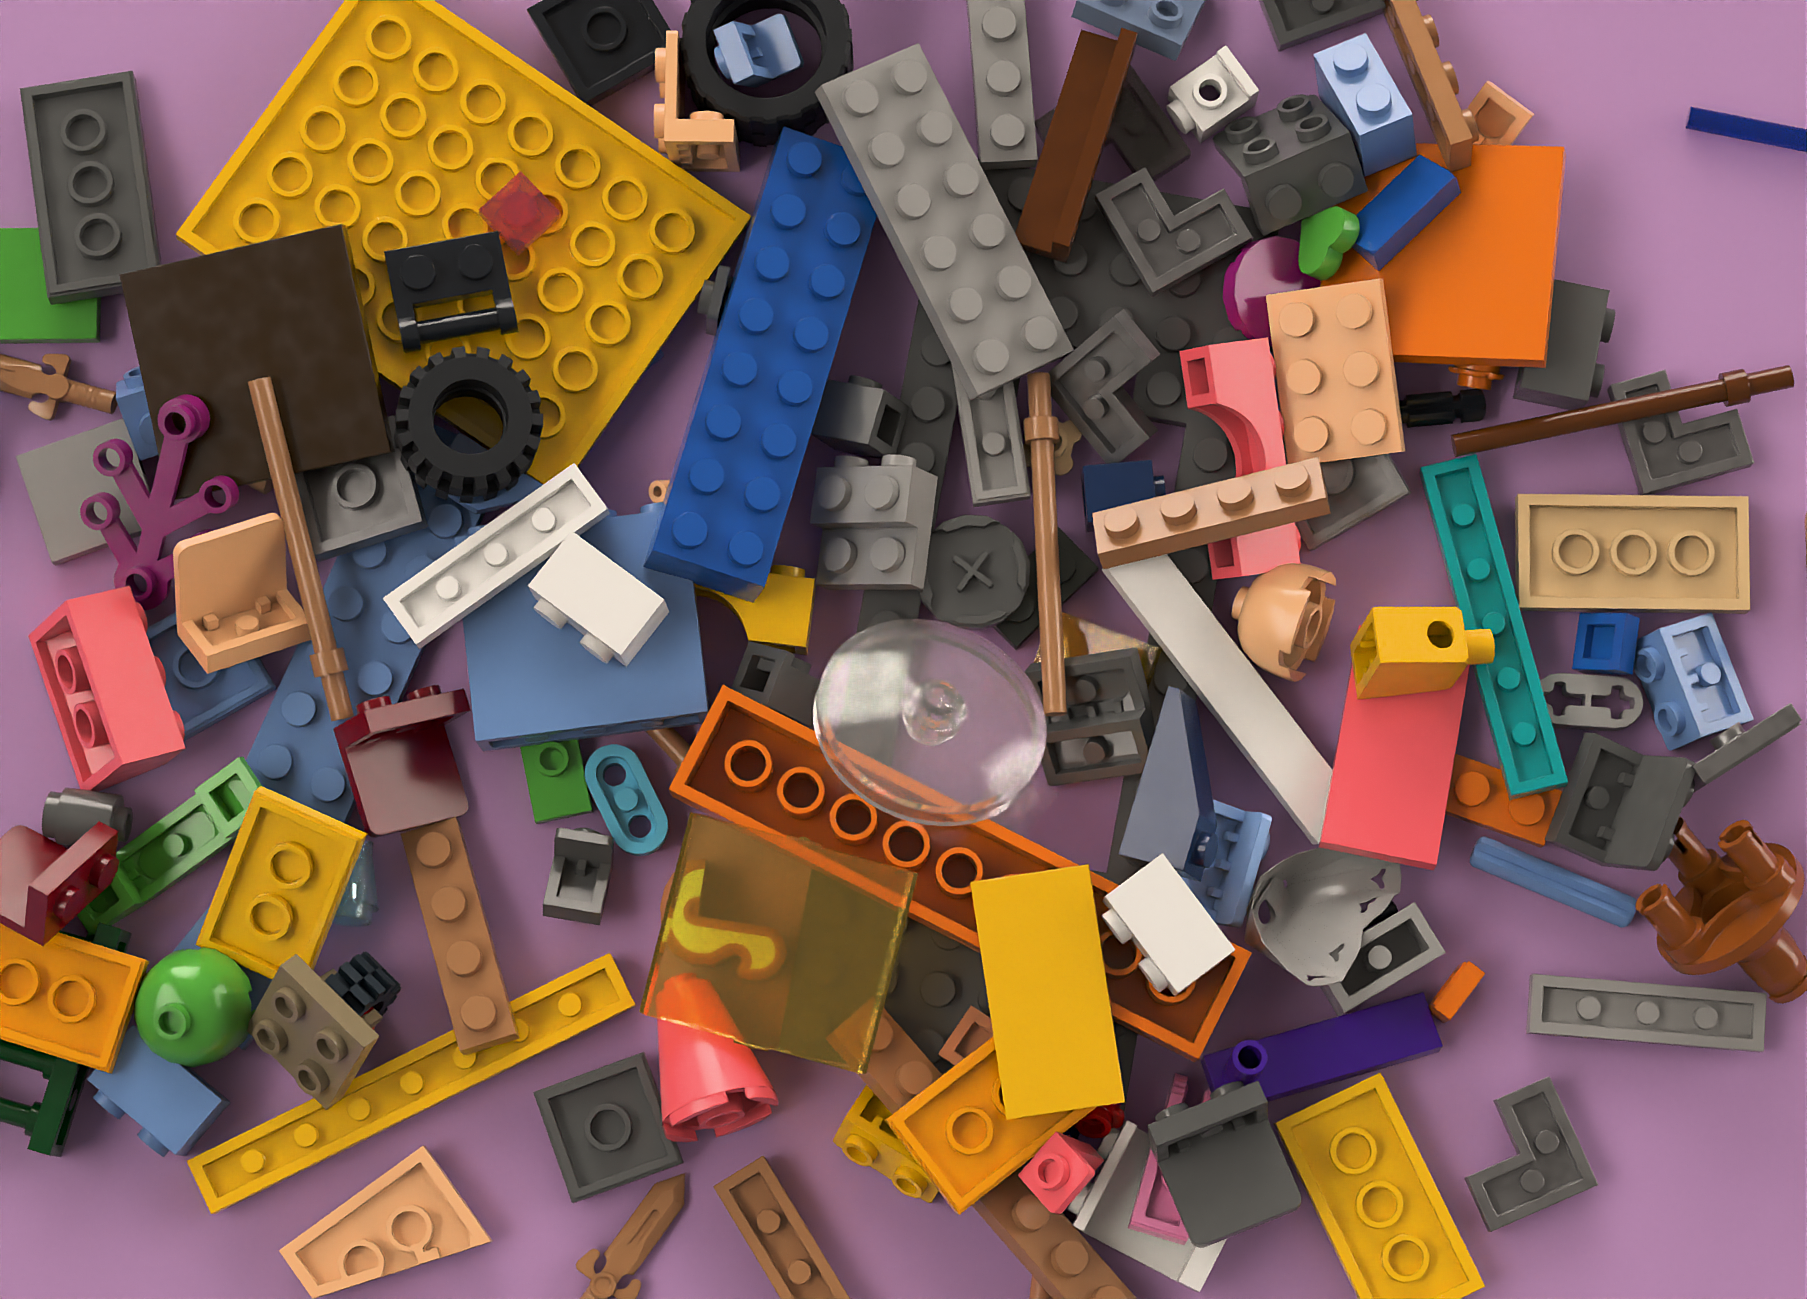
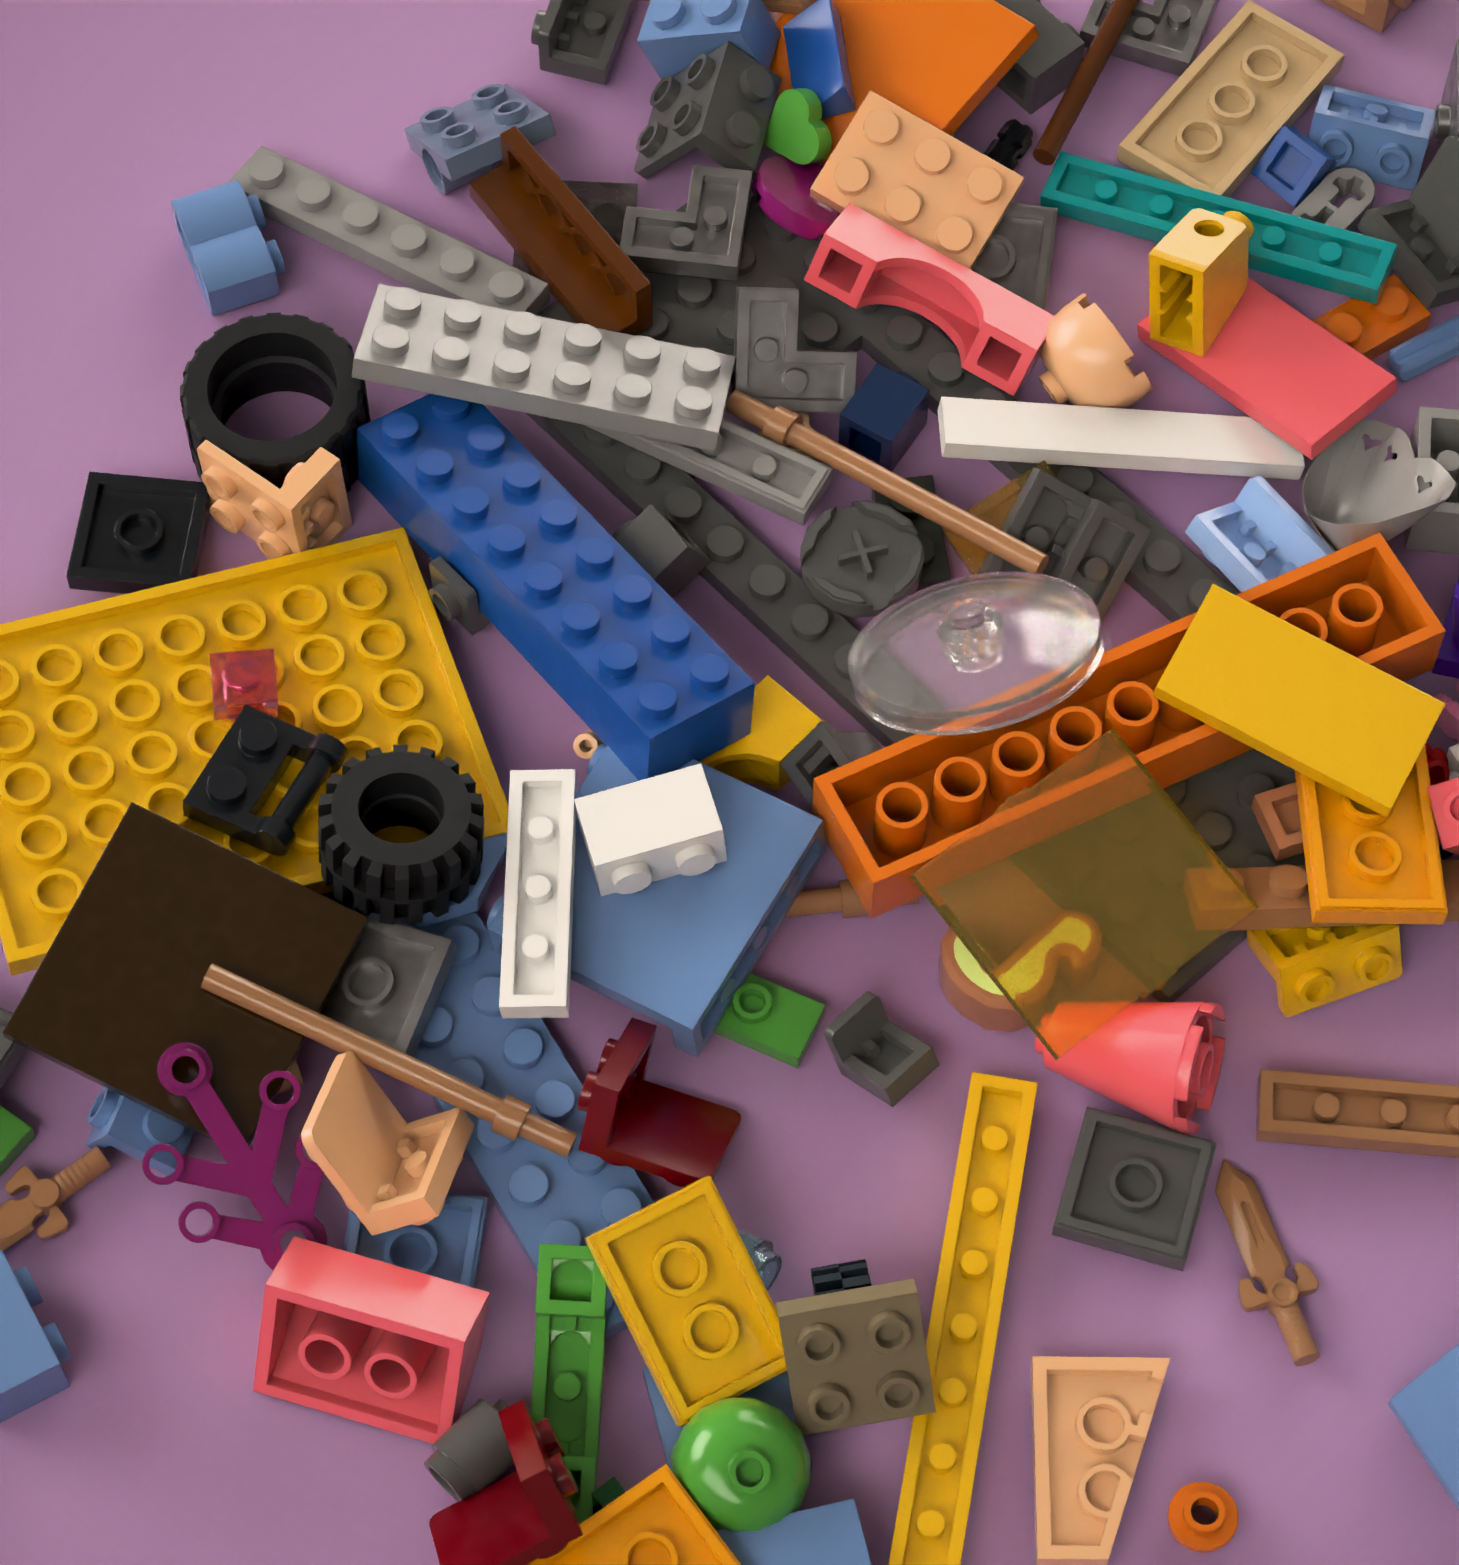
camera: 55 degrees left, 20 degrees down
(65, 476) = (143, 1252): light grey tile -> none
(459, 936) = (856, 1190): medium nougat plate -> none
(626, 801) = (841, 965): medium azure plate -> none
(757, 51) = (274, 405): medium blue bracket -> none
(873, 523) = (759, 600): light grey plate -> none
(1166, 926) = (1313, 563): white brick -> none
(1174, 797) = (1193, 522): slope -> none
(1206, 117) = (602, 139): white brick -> none
(1210, 513) = (965, 333): plate -> none
(1476, 375) = (990, 114): orange plate -> none

